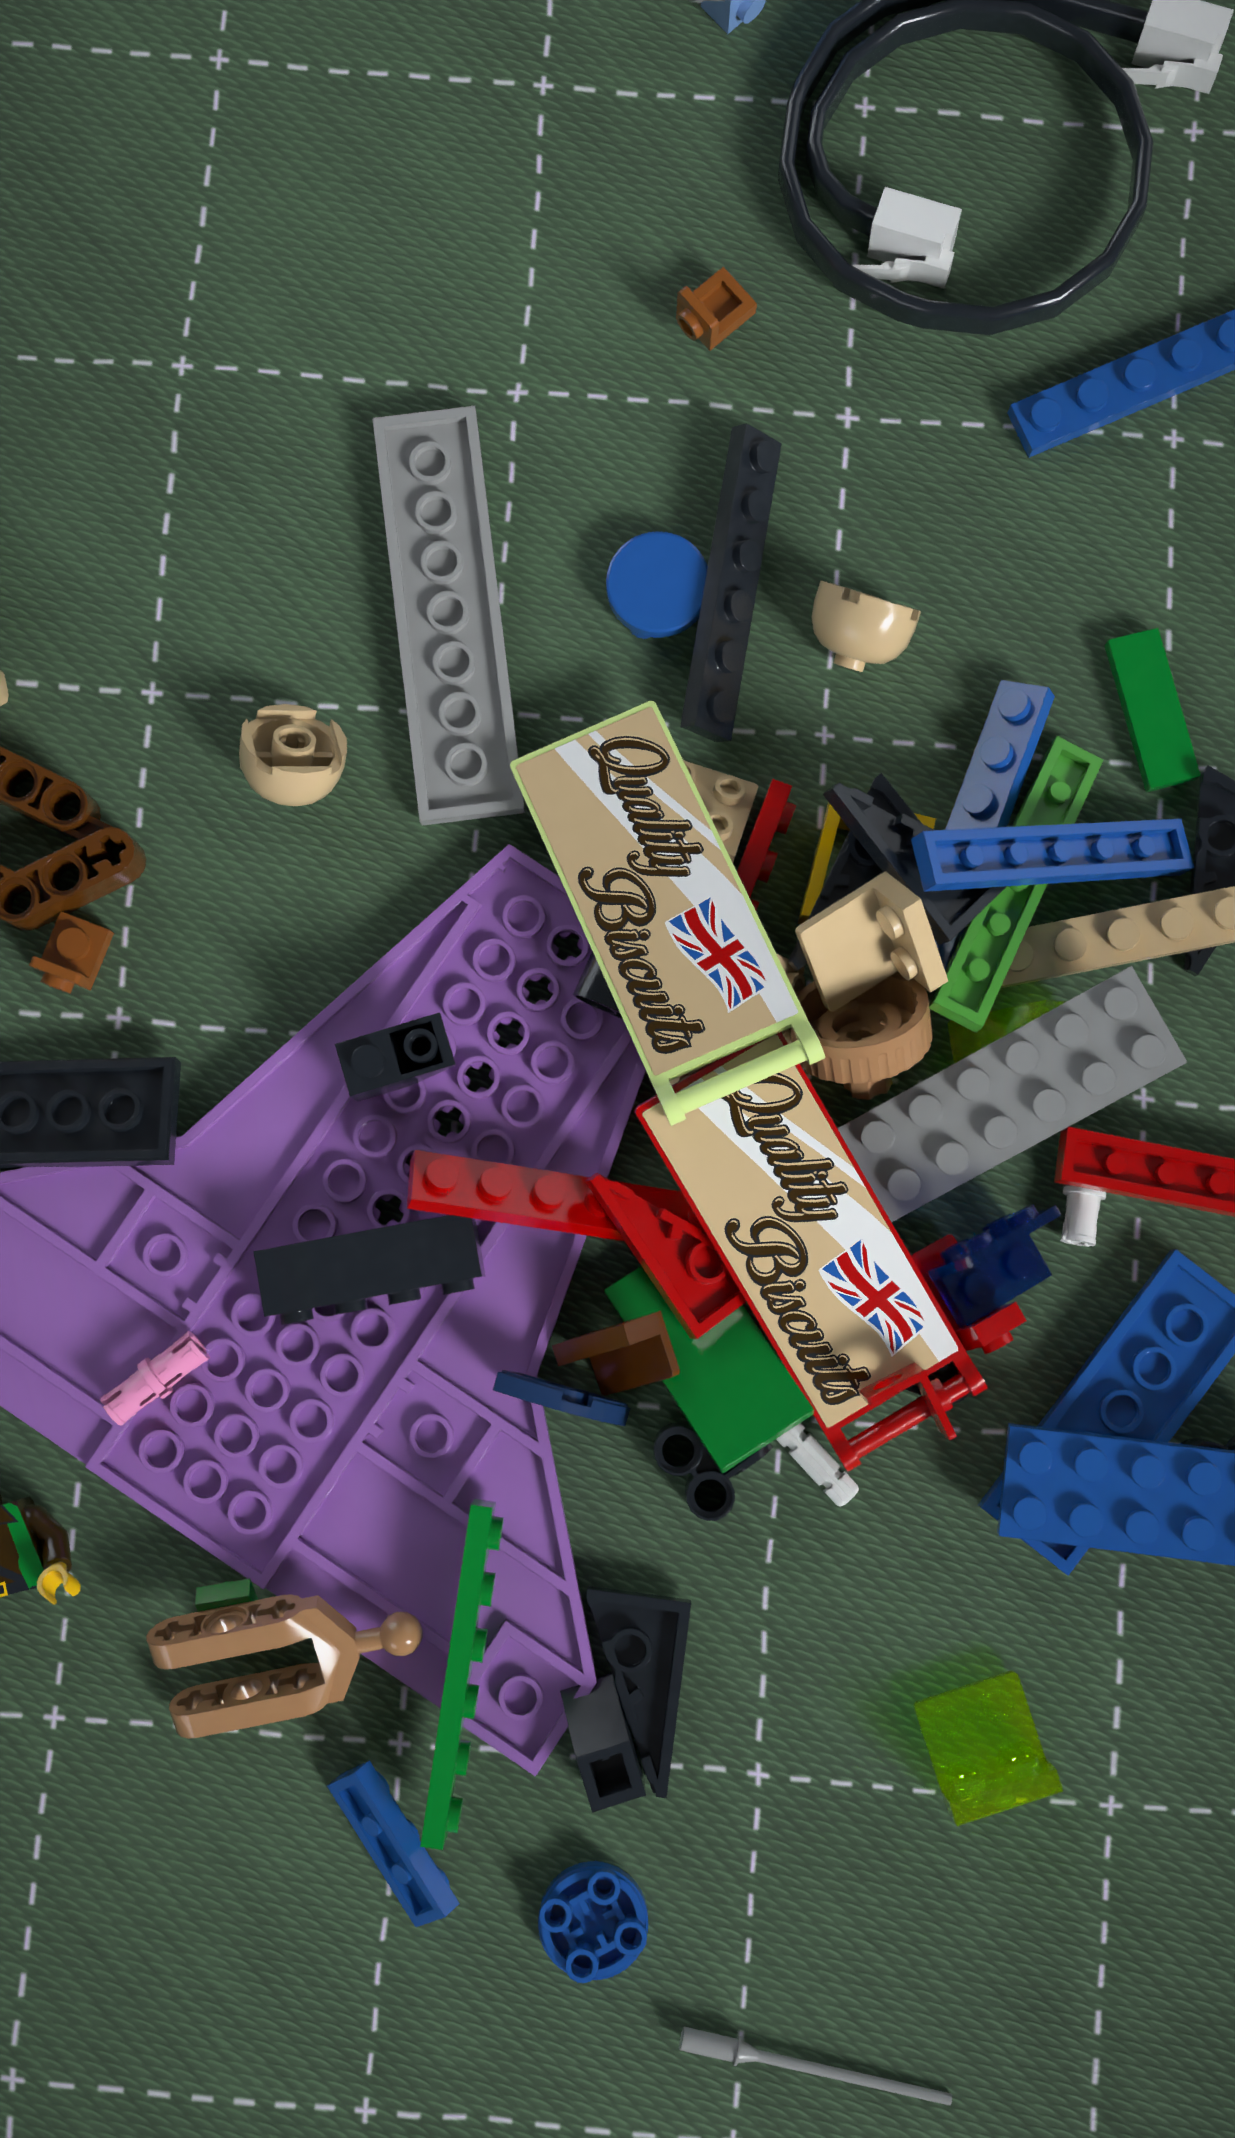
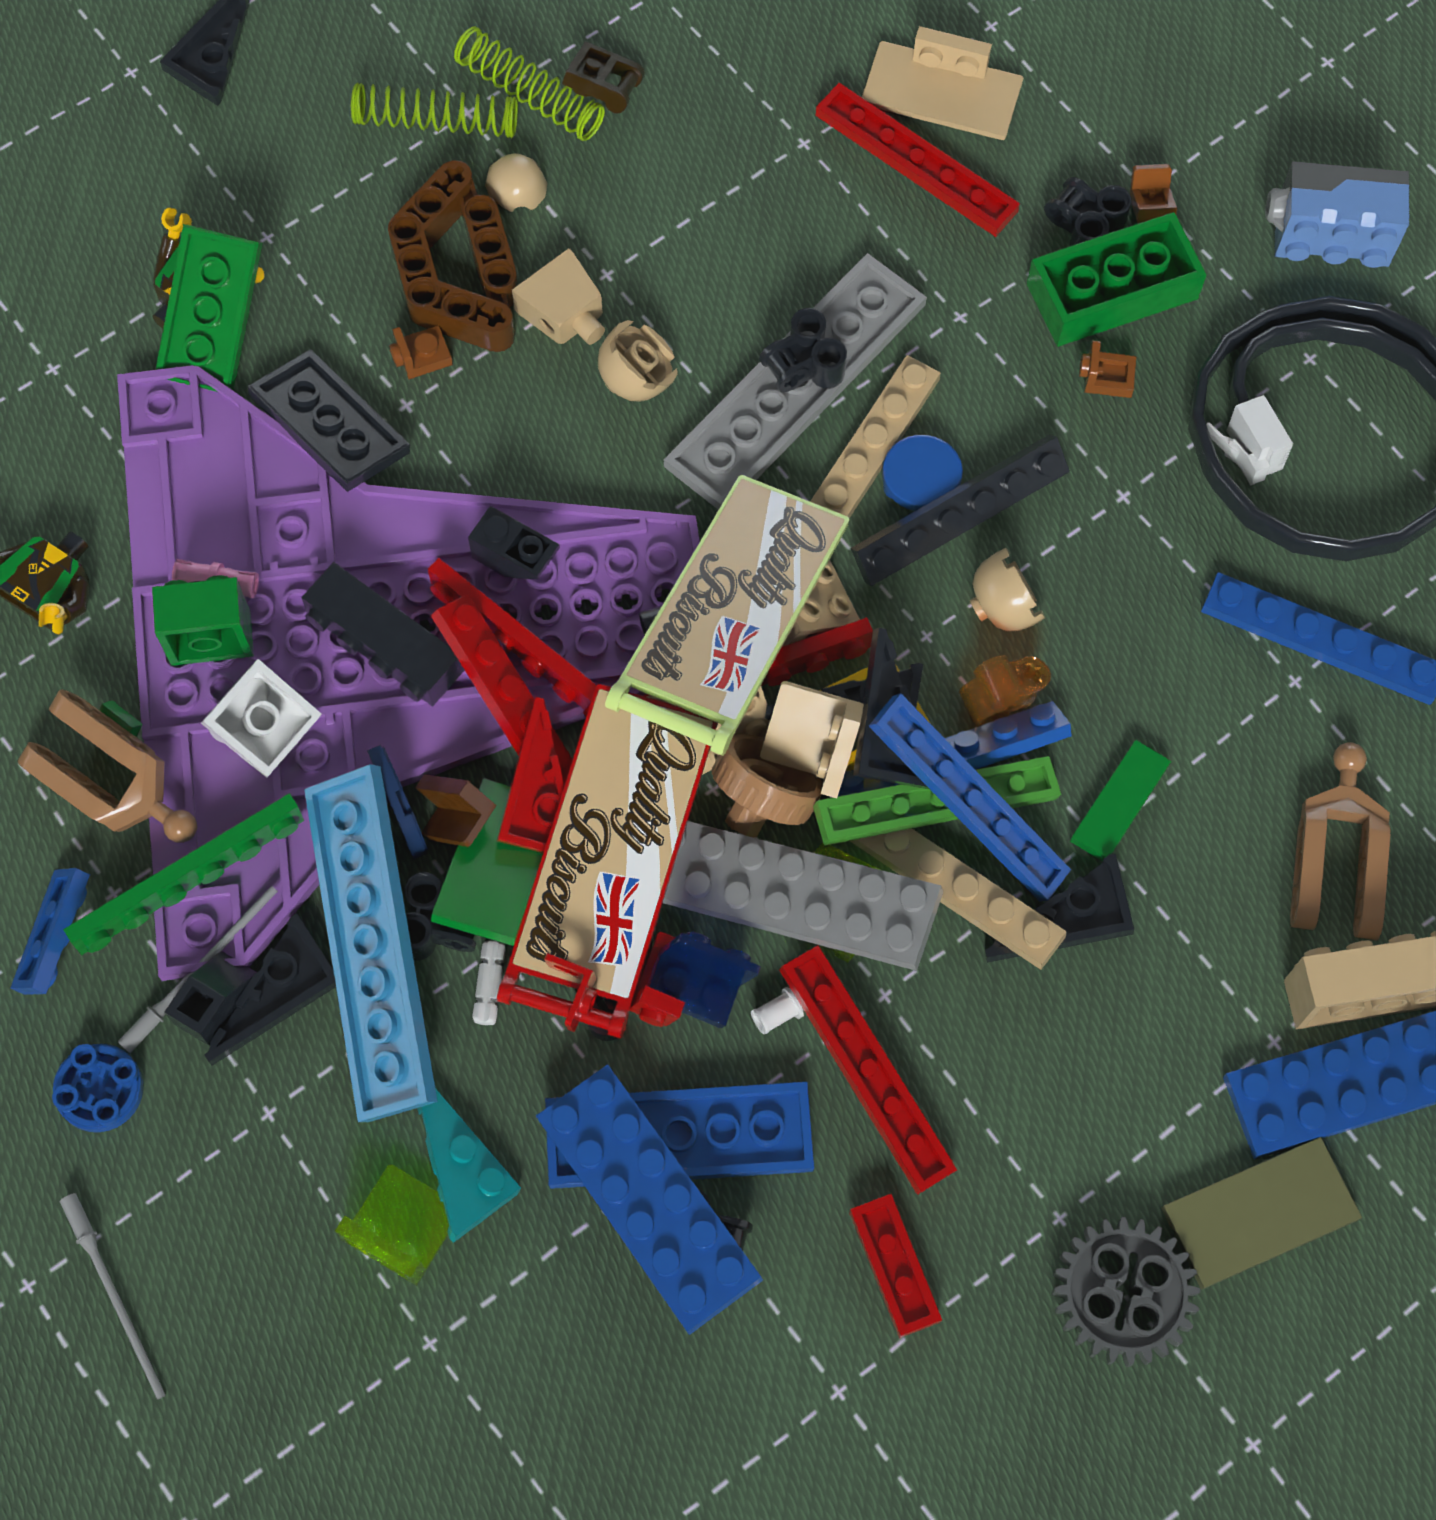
camera: 45 degrees right, 15 degrees down
(147, 764) = (561, 301): none -> tan torso
(200, 1437) = (202, 620): none -> green brick
(247, 167) = (944, 83): none -> tan bracket
(307, 272) = (917, 159): none -> red plate
(356, 1462) = (261, 718): none -> white slope
(434, 588) = (800, 355): none -> black piece
(485, 1140) = (514, 637): none -> red plate
(527, 166) = (1087, 211): none -> black piece
(563, 86) = (1151, 191): none -> dark orange bracket
(567, 1806) = (155, 1014): none -> light grey piece
(578, 595) = (875, 437): none -> tan plate
(626, 206) = (1115, 279): none -> green brick
(688, 1548) = (370, 945): none -> dark azure plate
(958, 715) = (1003, 687): none -> clear orange piece
(988, 1639) = (467, 1172): none -> teal wing

